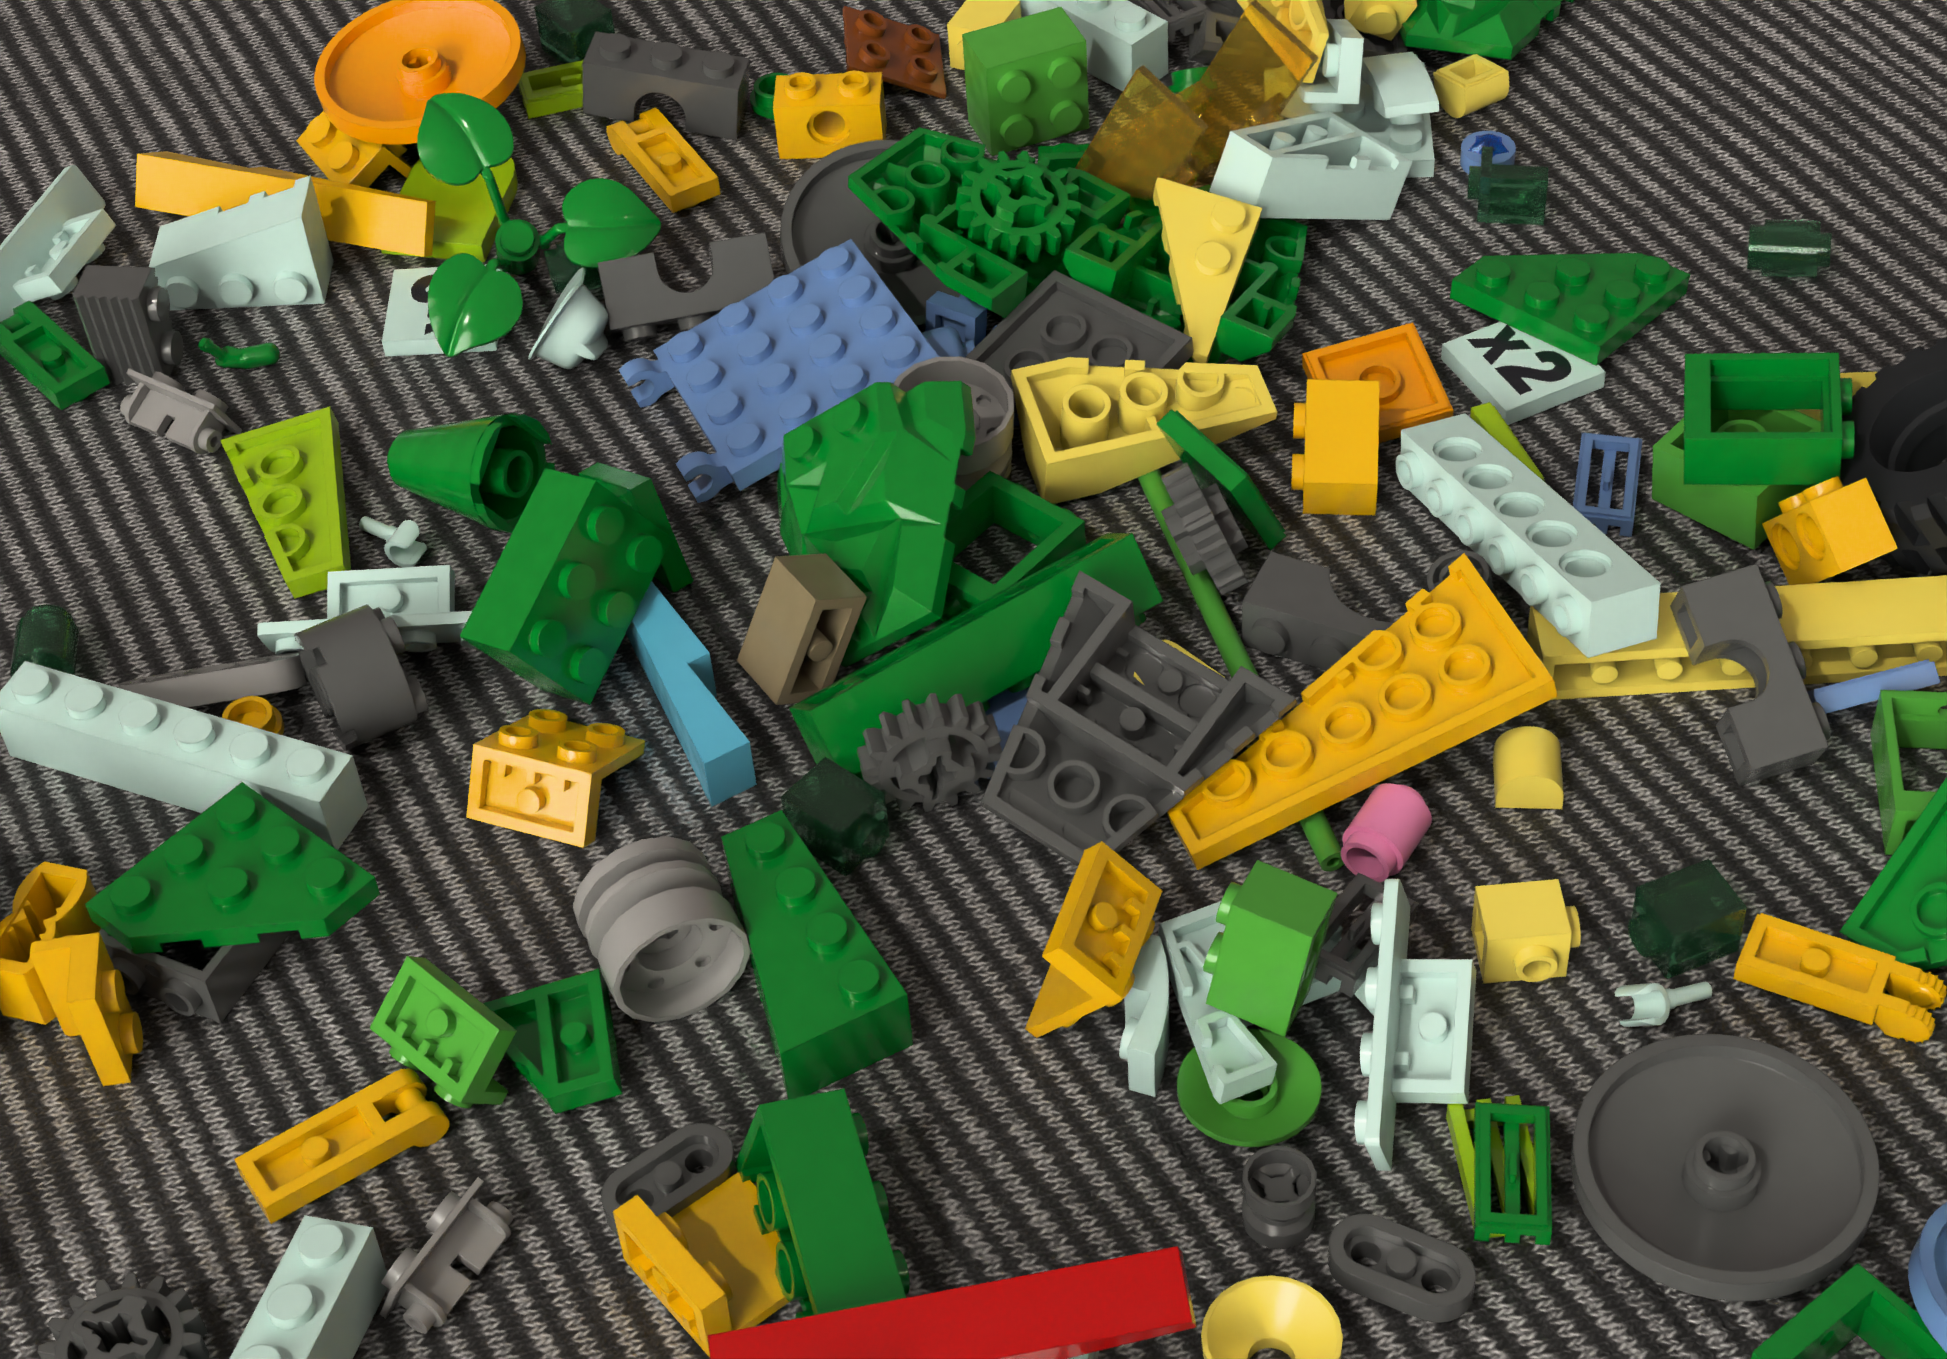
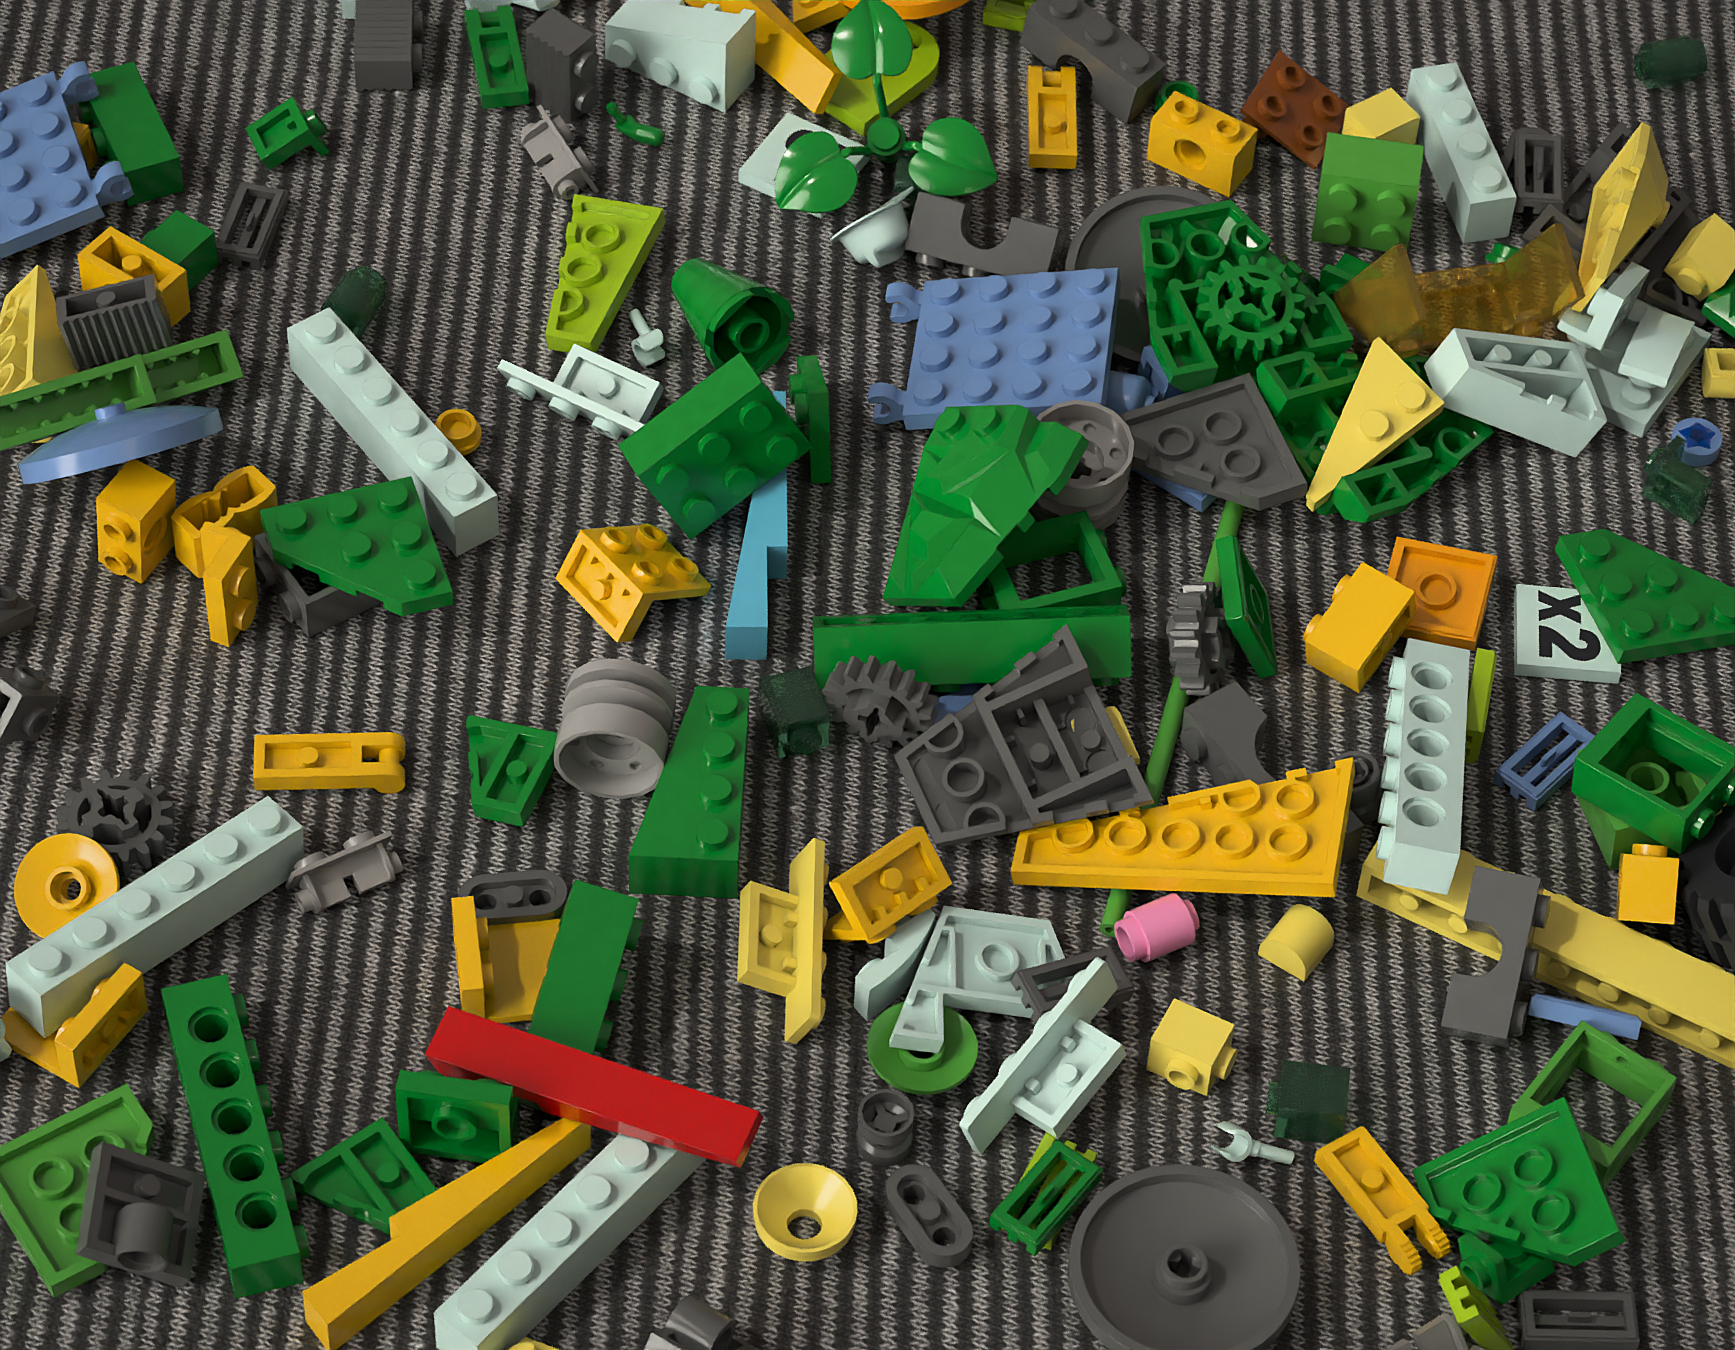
camera: 25 degrees right, 5 degrees up
(223, 681) = (452, 388): light grey beam -> none
(359, 675) = (541, 436): dark grey brick -> none
(444, 1034) = (432, 724): bright green bracket -> none
(800, 627) = (860, 561): dark tan brick -> none
(1015, 1056) = (784, 940): none -> light yellow bracket
(1098, 423) = (1188, 504): light yellow wedge -> none
(1268, 946) = (982, 959): bright green brick -> none

